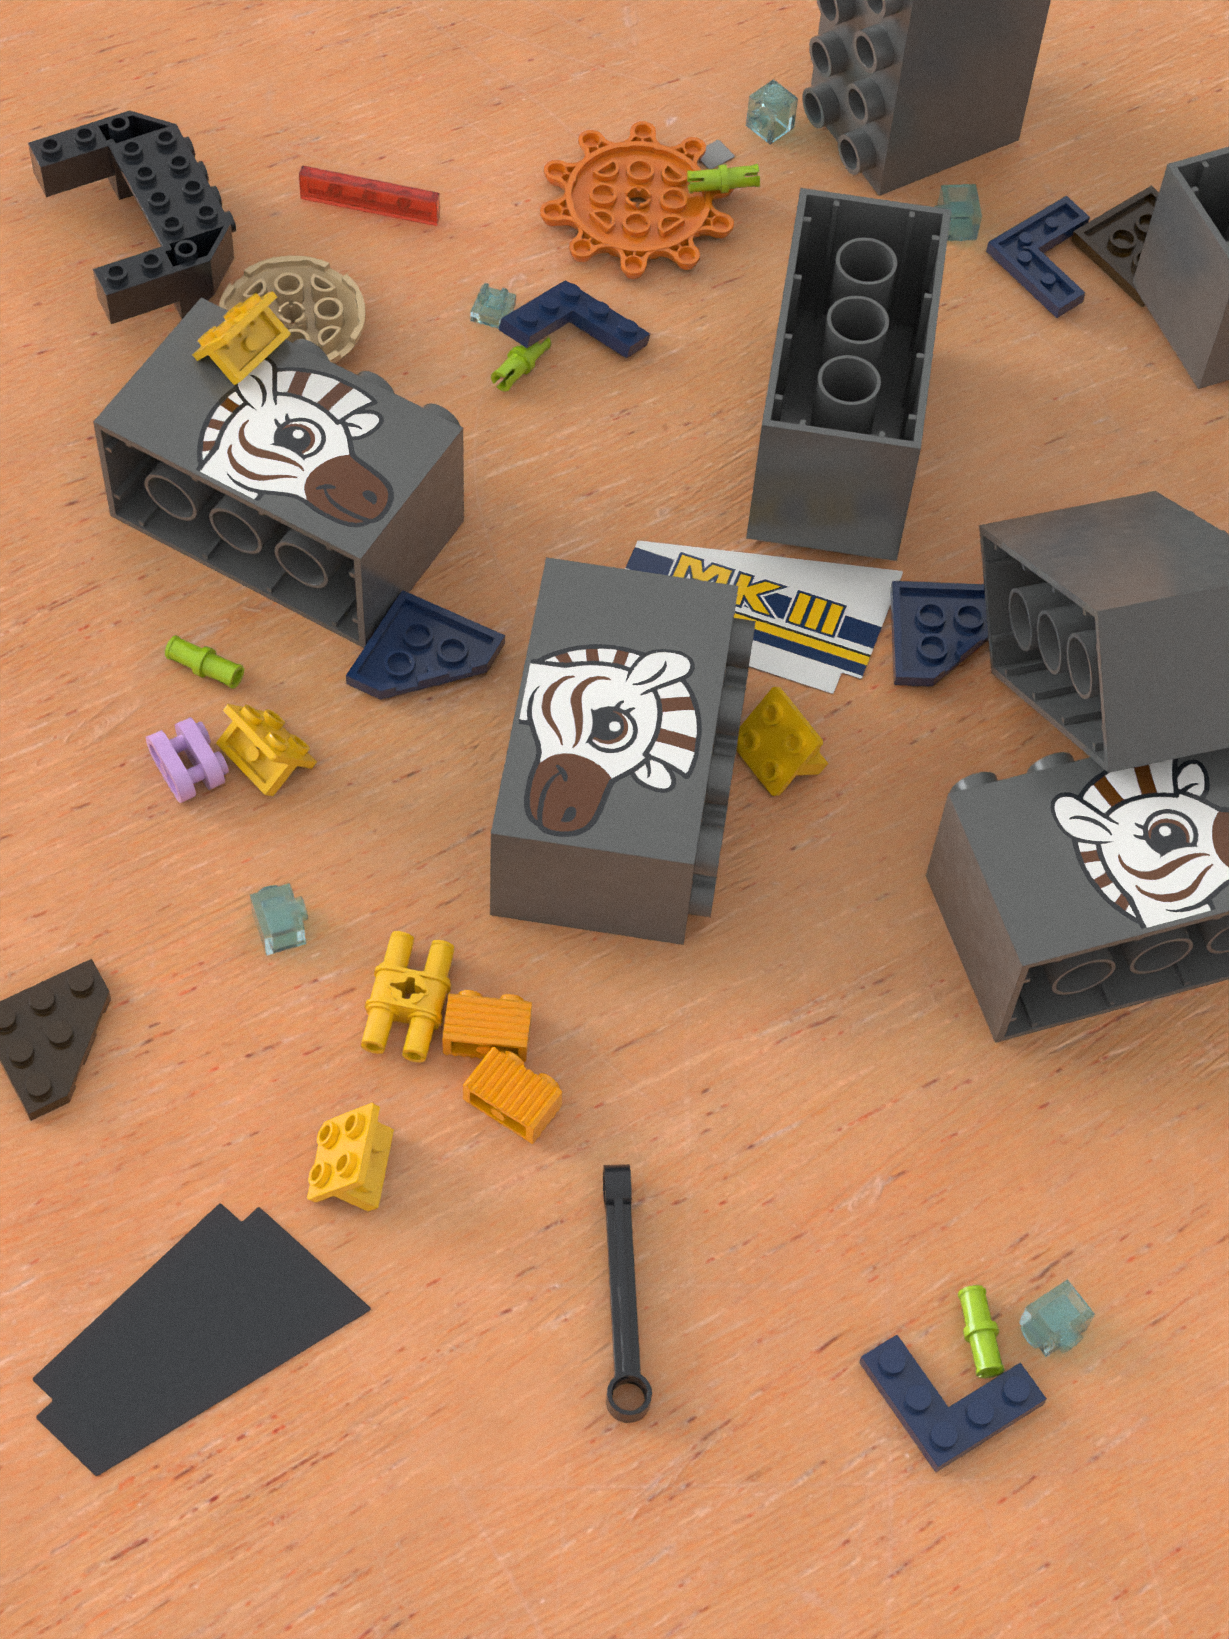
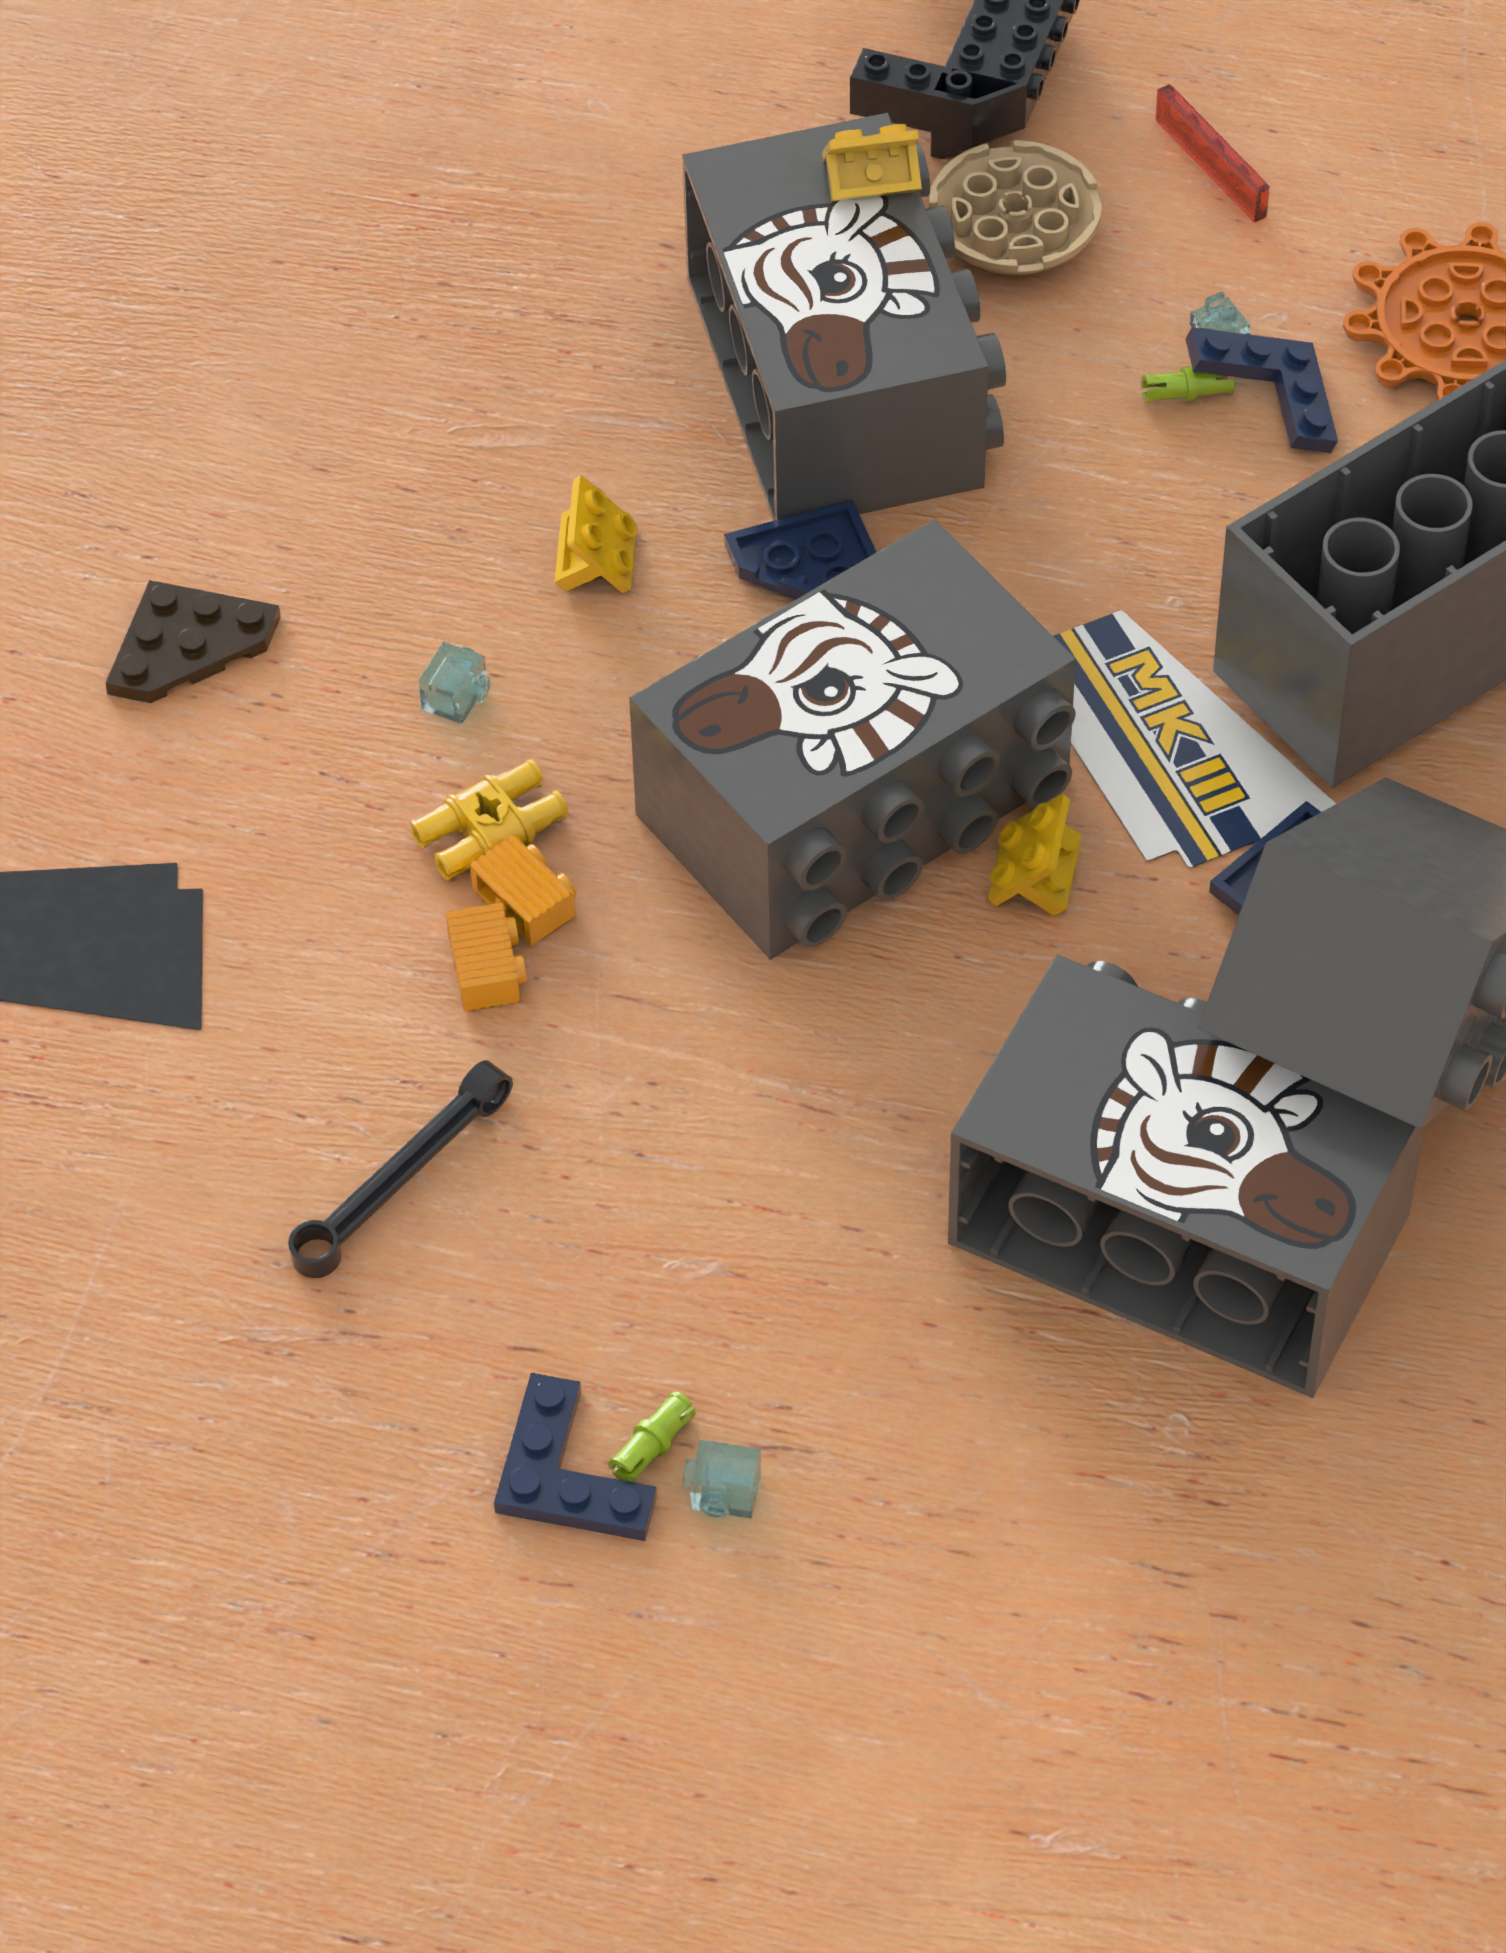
camera: 50 degrees right, 5 degrees down
(195, 742) = (534, 521): lavender brick -> none
(204, 661) = (624, 443): lime pin -> none
(351, 1158) = (307, 907): yellow bracket -> none

